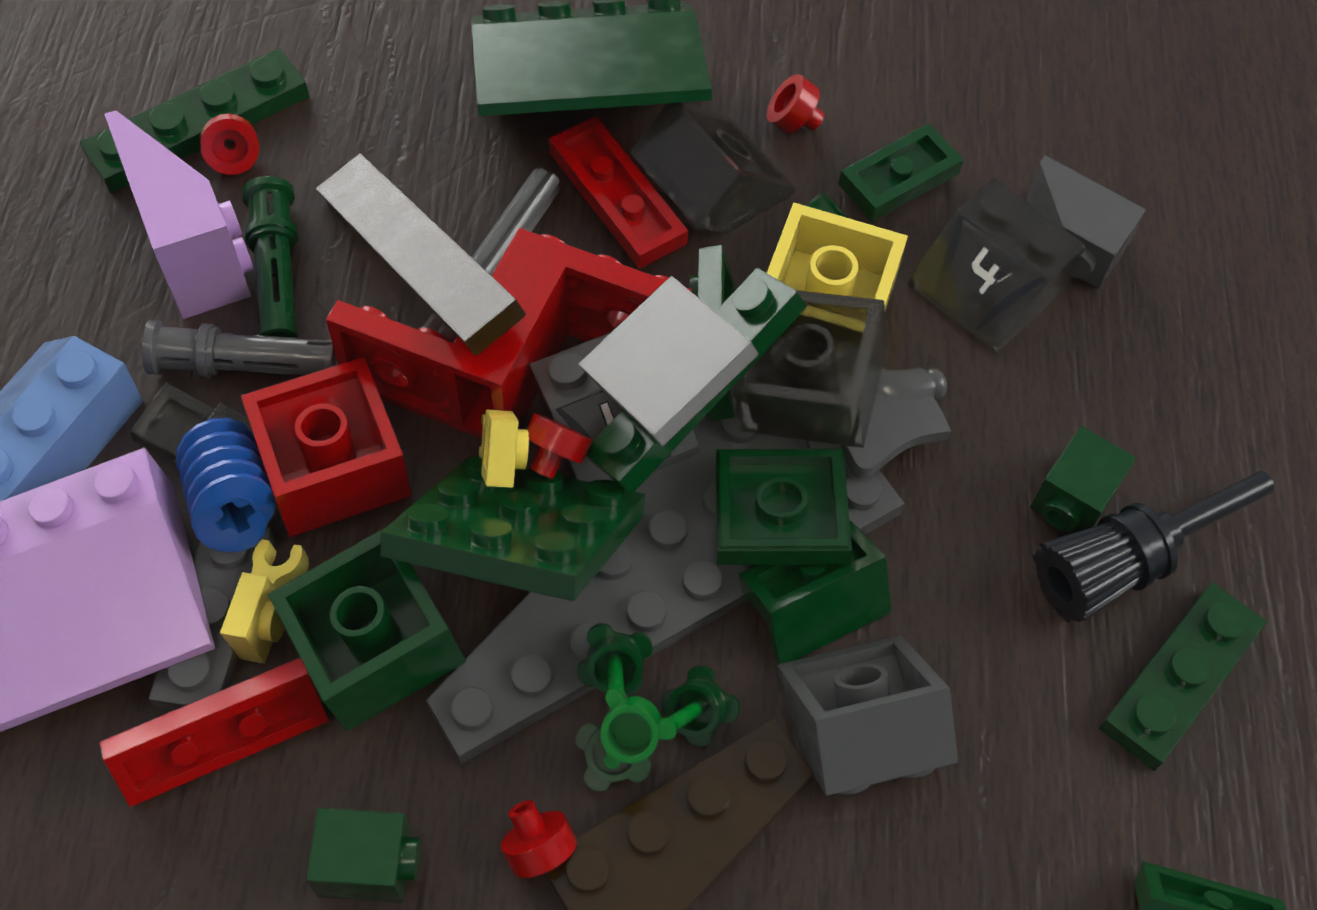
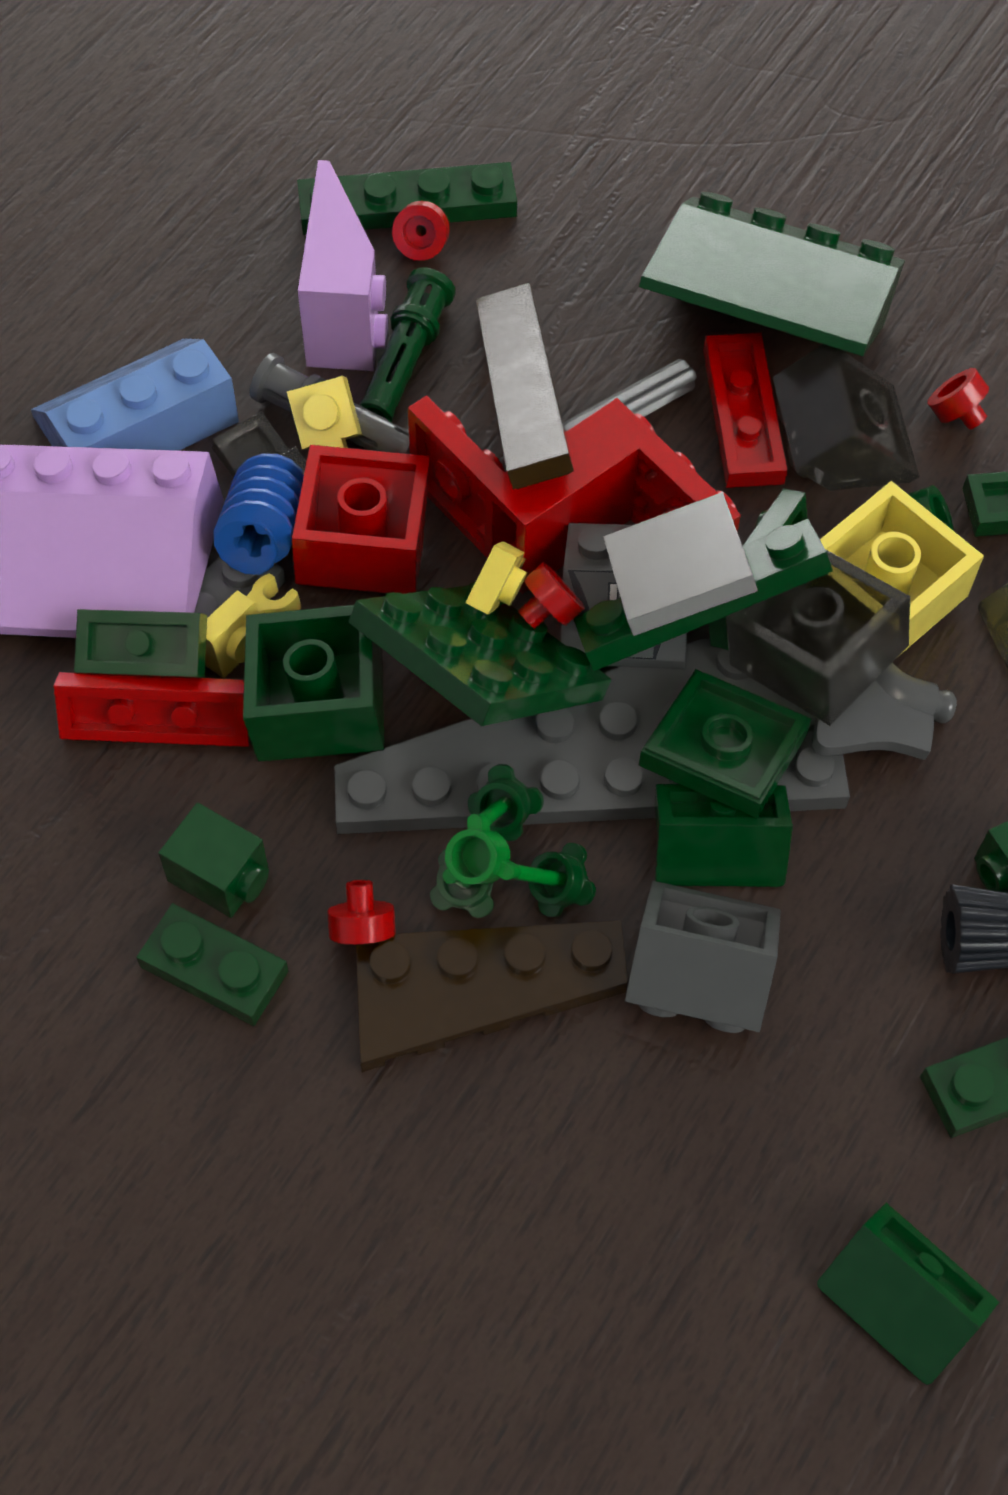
camera: 30 degrees right, 0 degrees up
(172, 673) = (141, 643): none -> dark green plate
(234, 359) = (324, 413): none -> light yellow plate

